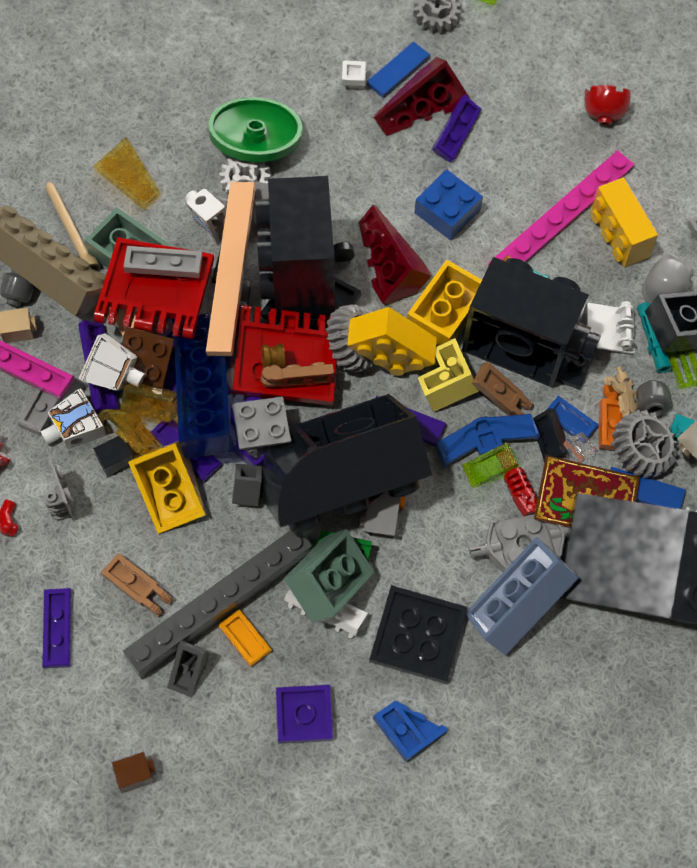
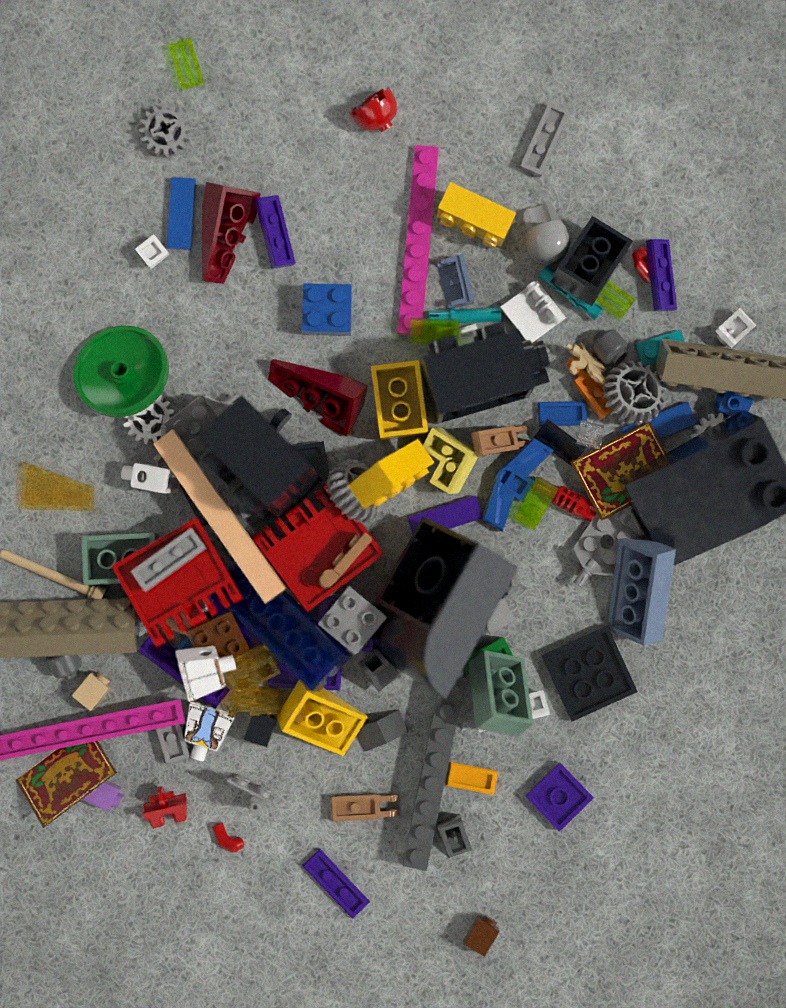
camera: 40 degrees left, 20 degrees up
(207, 538) = (382, 731): none -> dark grey slope
(273, 355) = (315, 562): pearl gold wheel -> none
(407, 729) = (638, 746): blue wing -> none
(568, 258) = (455, 281): none -> sand blue hinge

